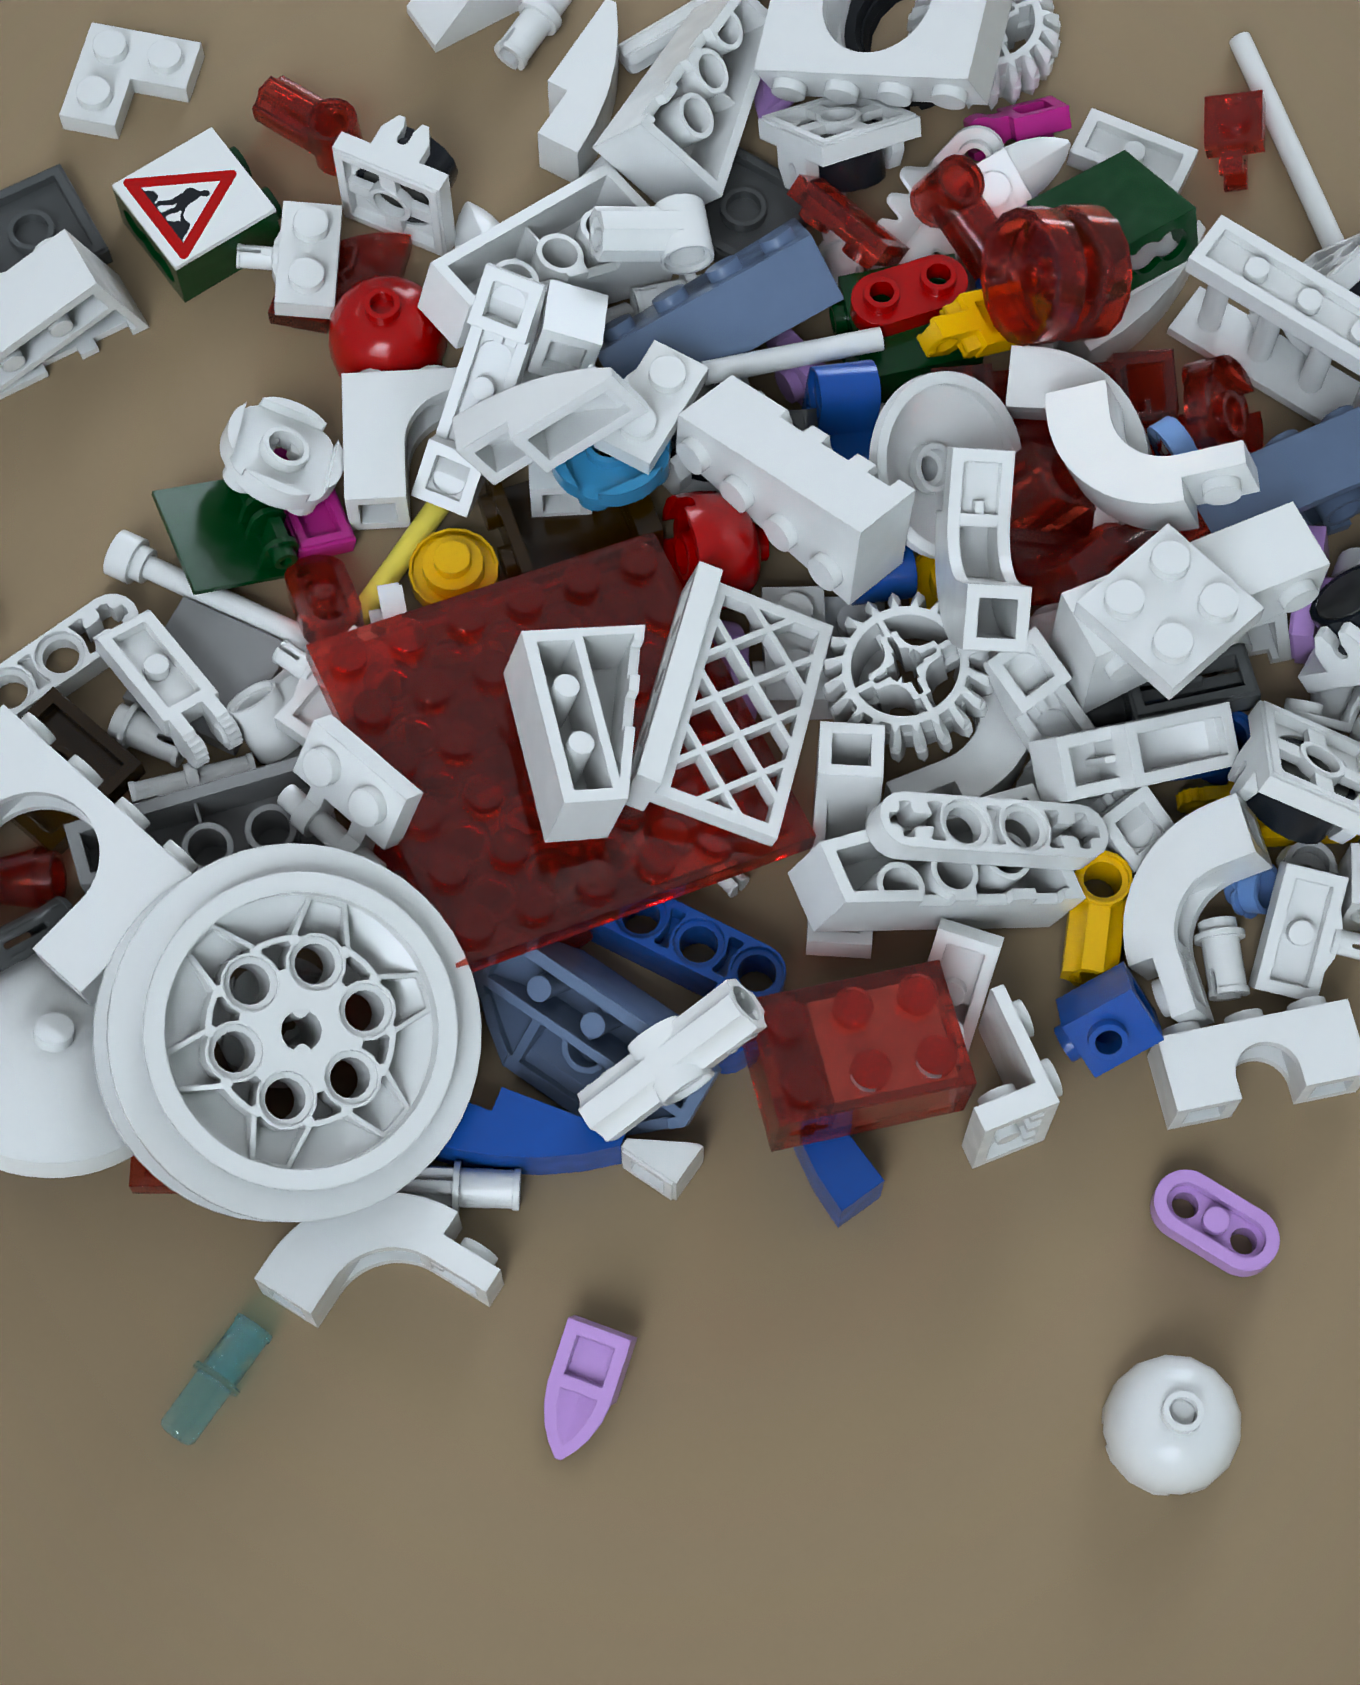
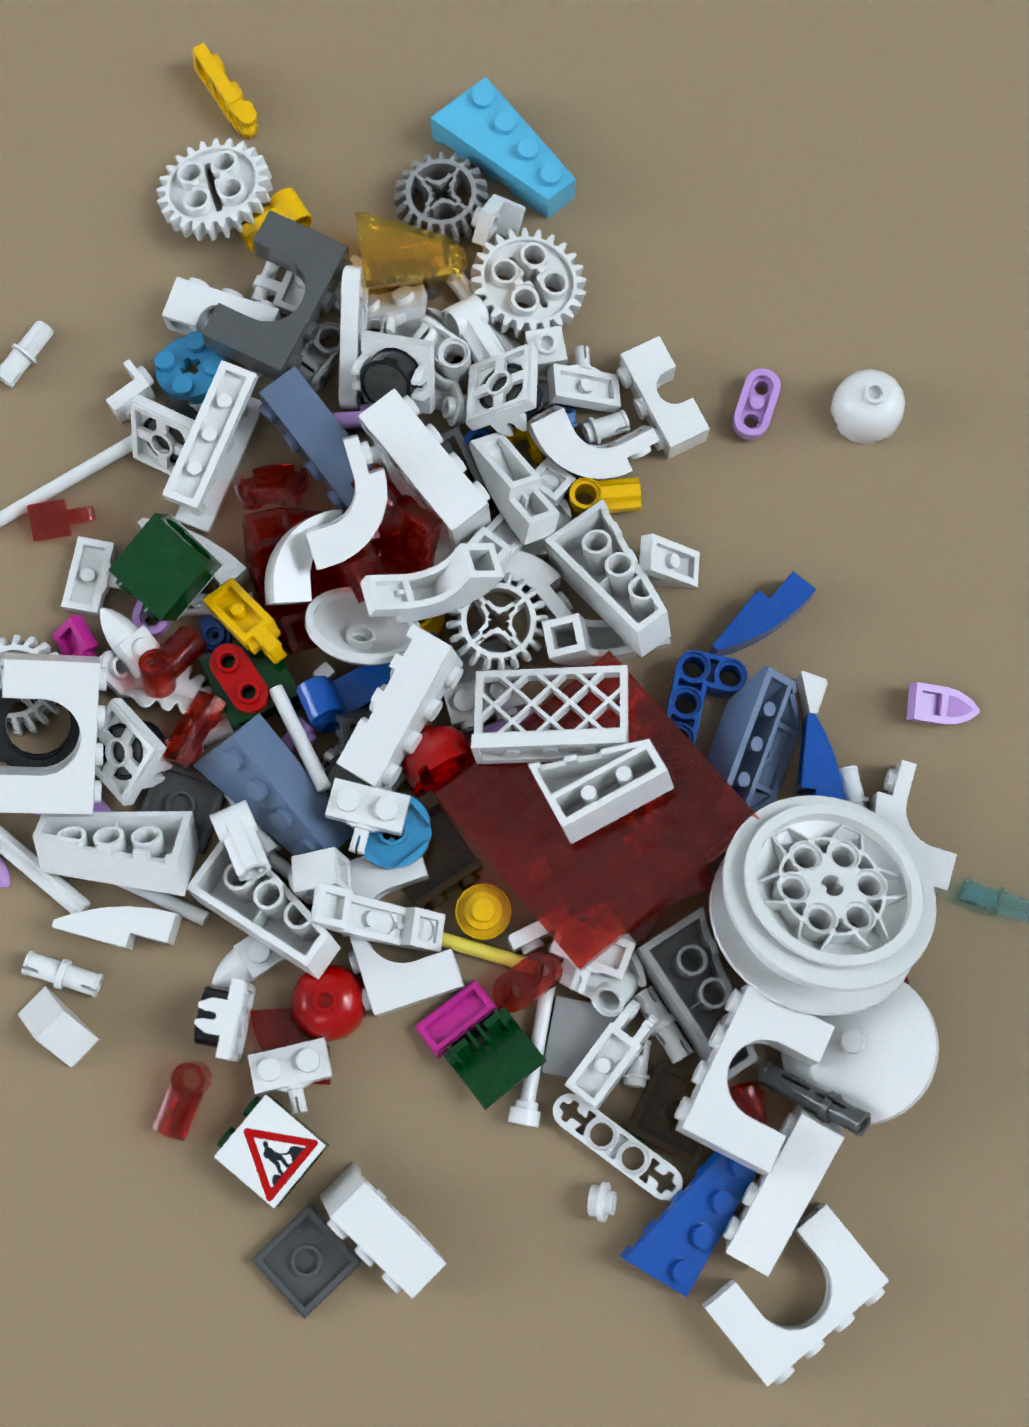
camera: 105 degrees left, 10 degrees up
(122, 63) = (160, 1247): white plate -> none
(280, 483) = (458, 1047): white plate -> none
(354, 781) = (668, 905): white plate -> none
(544, 421) = (401, 868): white slope -> none
(671, 1060) = (775, 688): white piece -> none
(858, 1056) = (737, 596): clear red piece -> none
(987, 822) = (595, 549): white beam -> none
(1026, 1103) = (735, 504): white bracket -> none
(1056, 274) = (226, 582): clear red wheel -> none
(1107, 1021) = (666, 475): blue brick -> none
(1168, 611) = (452, 467): white plate -> none
(1170, 437) = (309, 502): light blue tile -> none

